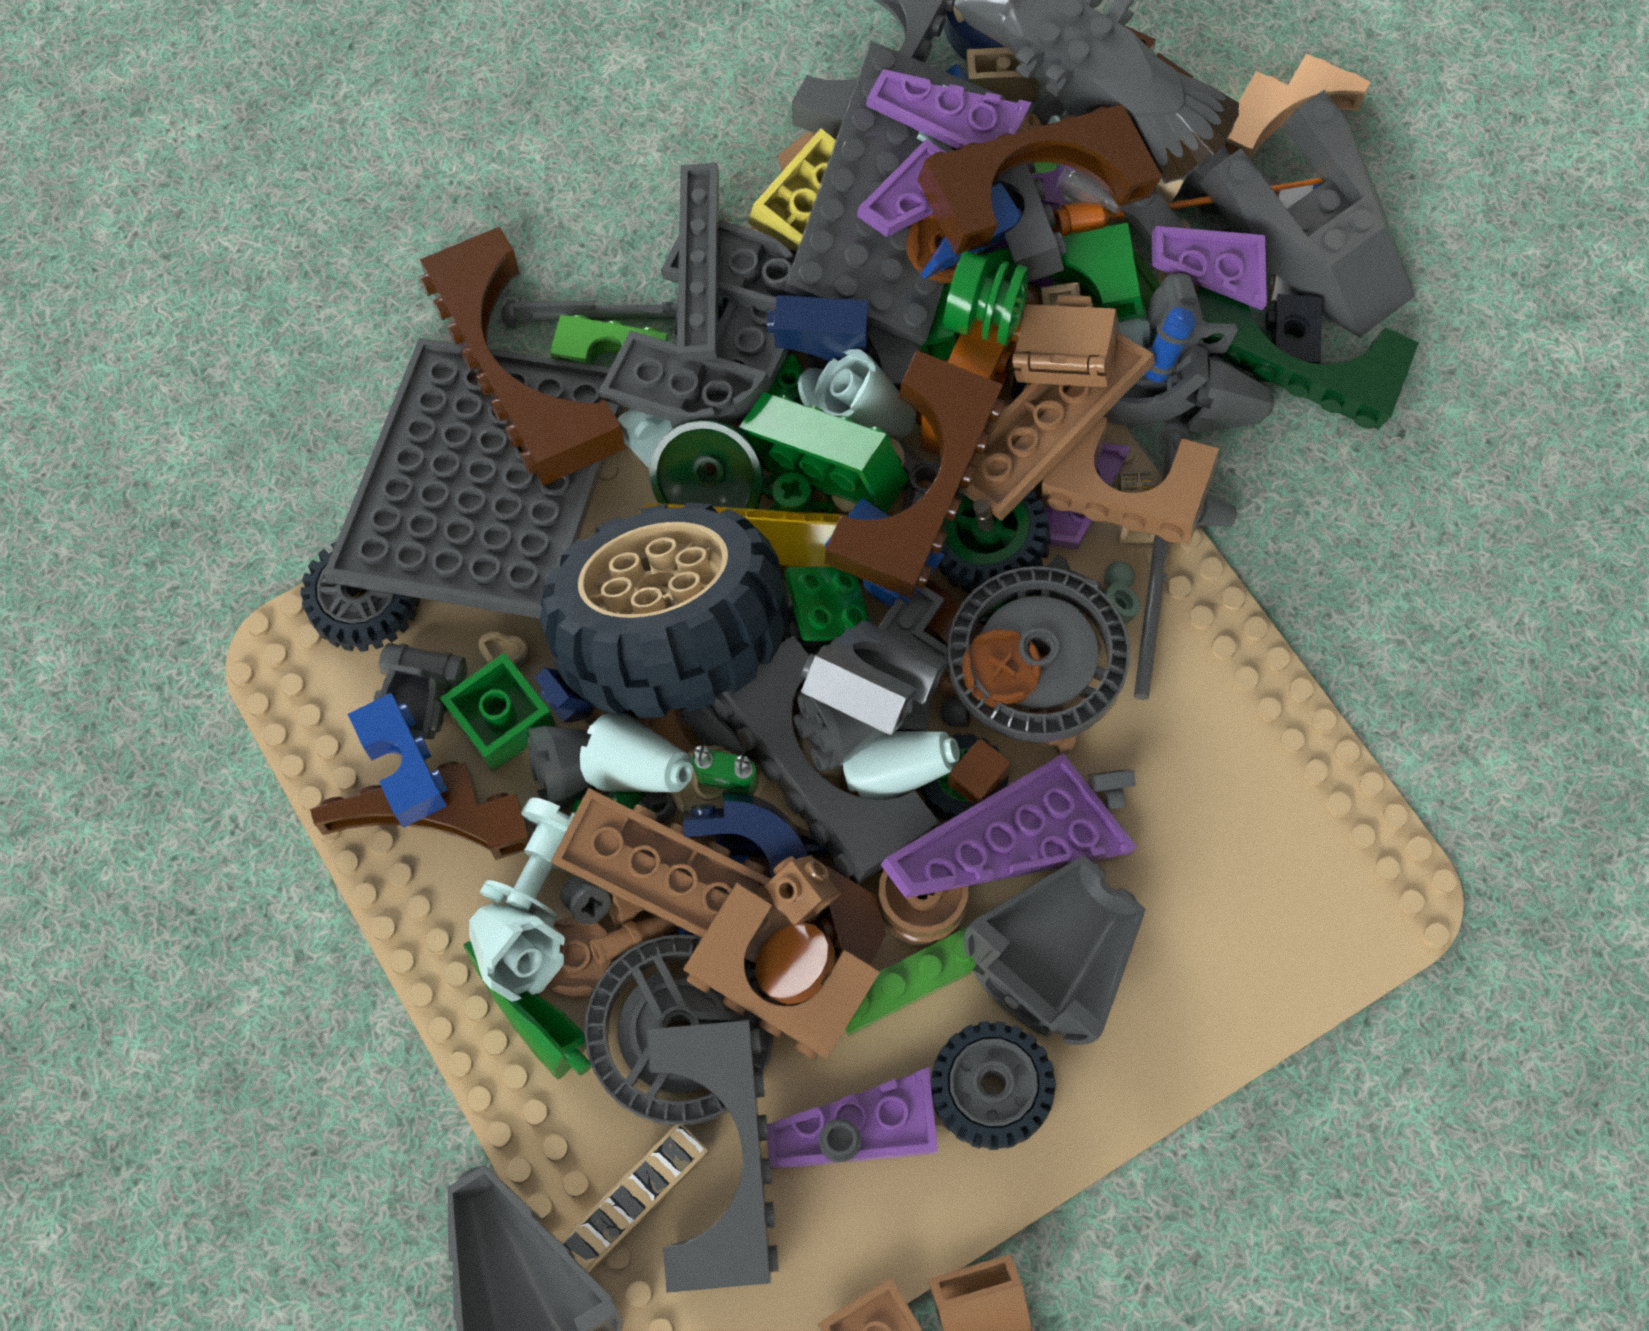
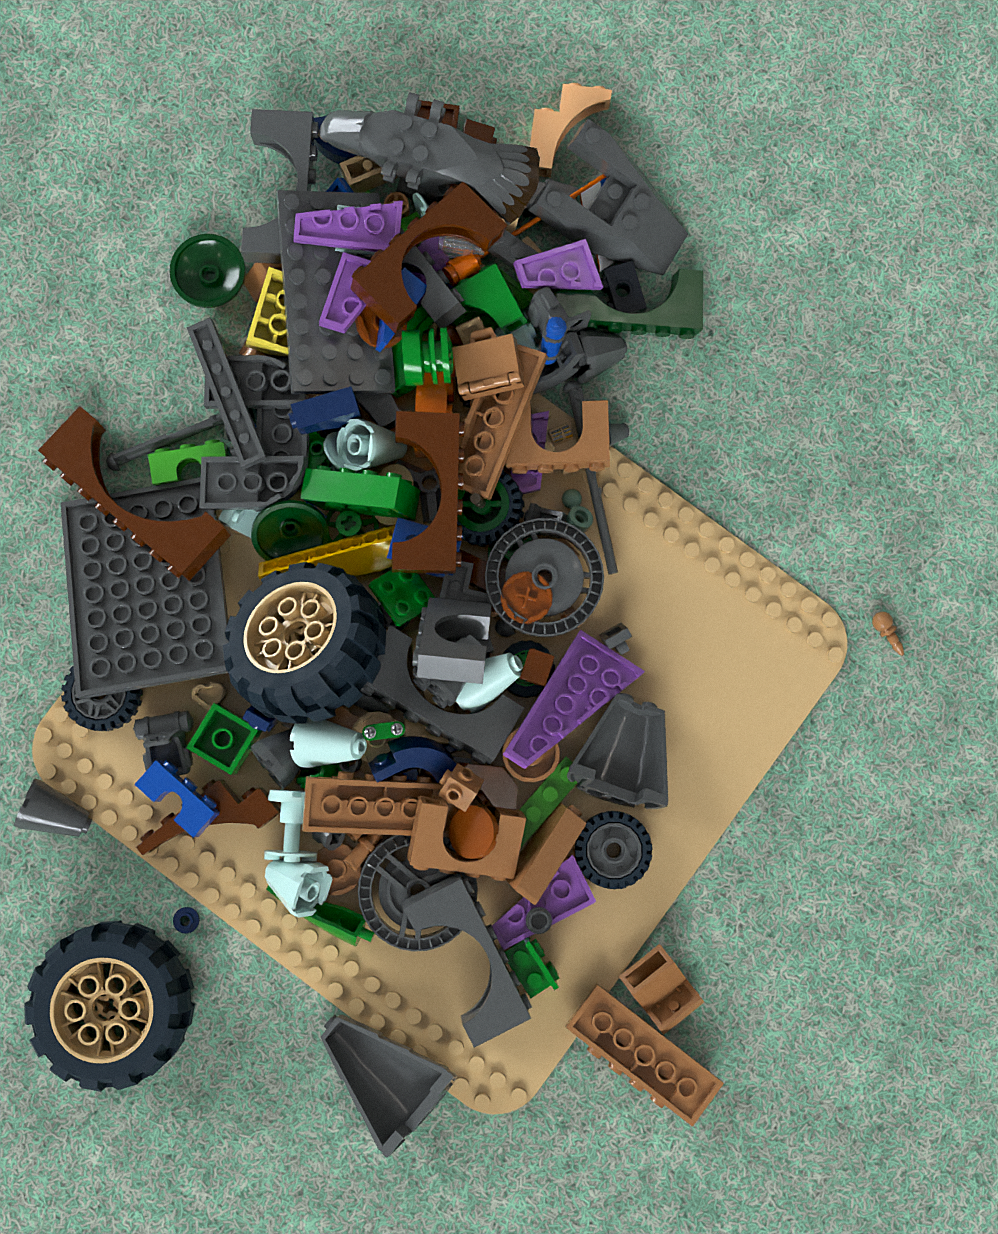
camera: 30 degrees left, 15 degrees up
(217, 723) = (51, 812): none -> dark grey cone
(244, 1041) = (162, 1005): none -> black wheel
(340, 956) = (193, 916): none -> dark blue plate
(634, 1197) = (430, 997): tile -> none
(735, 108) = (197, 259): none -> dark green dish
(799, 1211) = (531, 968): none -> green bracket
(891, 1044) = (546, 852): none -> medium nougat slope
(1526, 915) = (884, 623): none -> medium nougat bar

